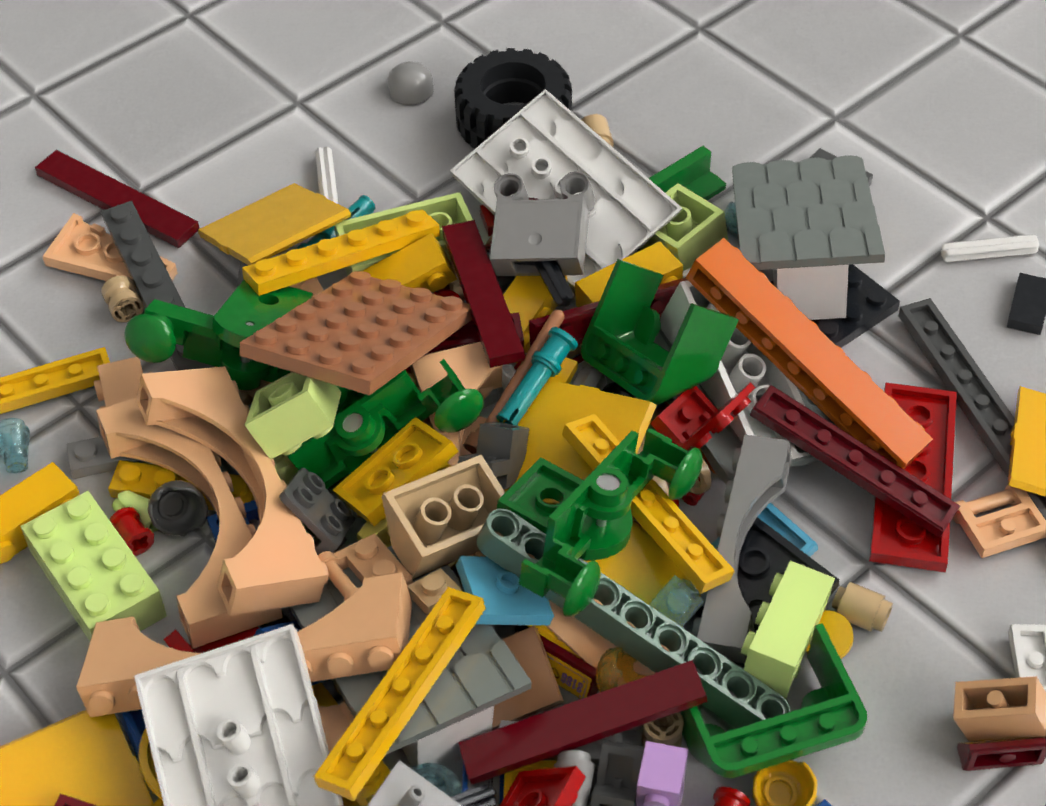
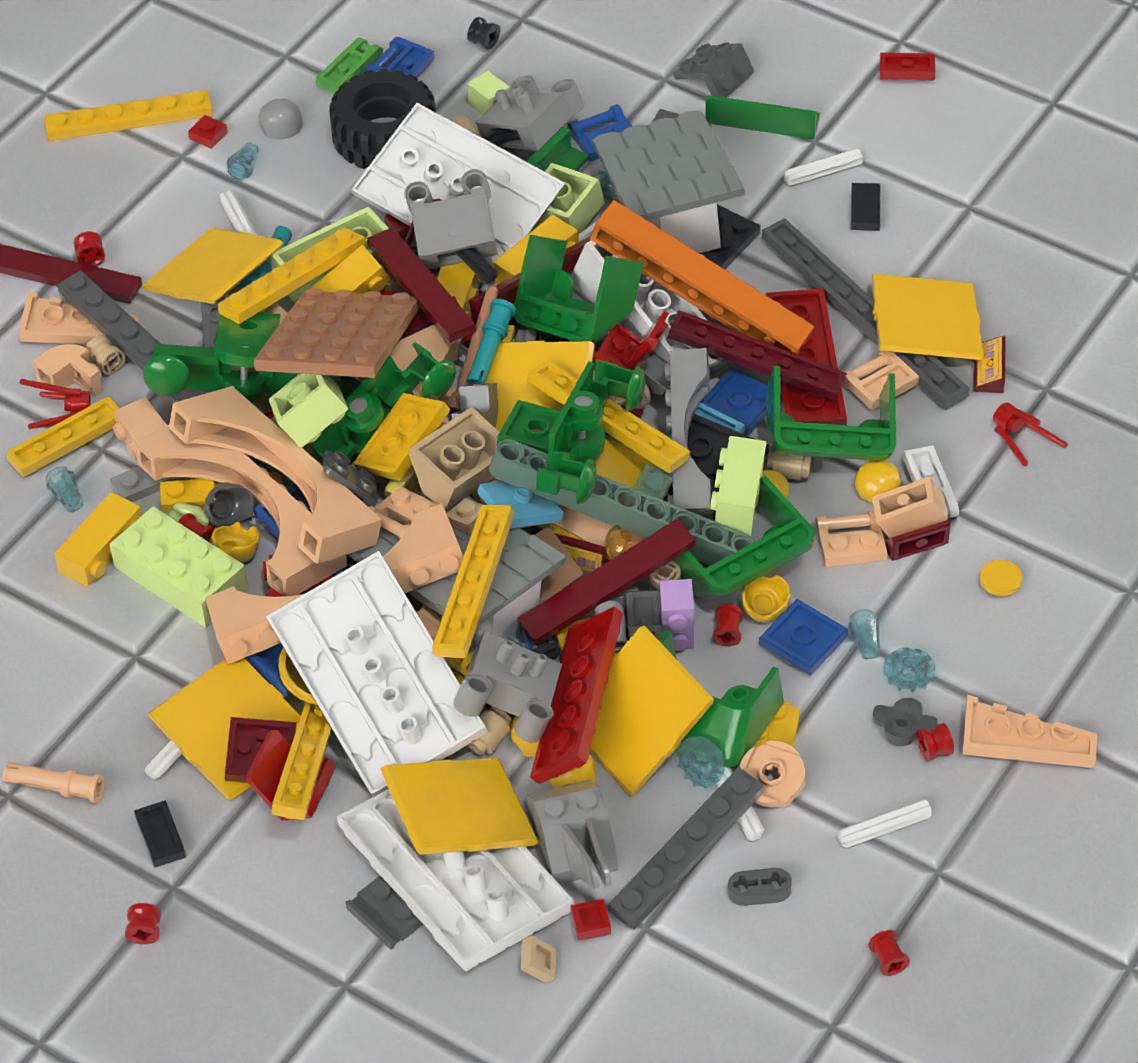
camera: 15 degrees left, 0 degrees up
(66, 342) = (74, 400): none -> red plant
(74, 303) = (68, 365): none -> light nougat brick
(157, 180) = (89, 248): none -> red wheel
(167, 556) = (236, 541): none -> yellow hair
(258, 51) = (128, 115): none -> yellow plate
(331, 82) = (207, 131): none -> red plate
(352, 120) = (242, 162): none -> clear light blue cone
(511, 34) = (348, 64): none -> bright green plate
(561, 45) = (410, 59): none -> blue plate
(636, 99) = (482, 91): none -> yellowish green brick
(651, 34) = (483, 33): none -> black wheel
(670, 126) = (526, 117): none -> light grey piece
(722, 152) = (585, 141): none -> blue plate
(823, 509) = (739, 398): none -> blue plate
(898, 116) = (719, 65): none -> dark grey bracket
(915, 738) = (850, 546): none -> light nougat plate
(932, 178) = (761, 117): none -> green panel
(968, 655) = (876, 478): none -> yellow hair
(970, 604) = (868, 441): none -> green windscreen

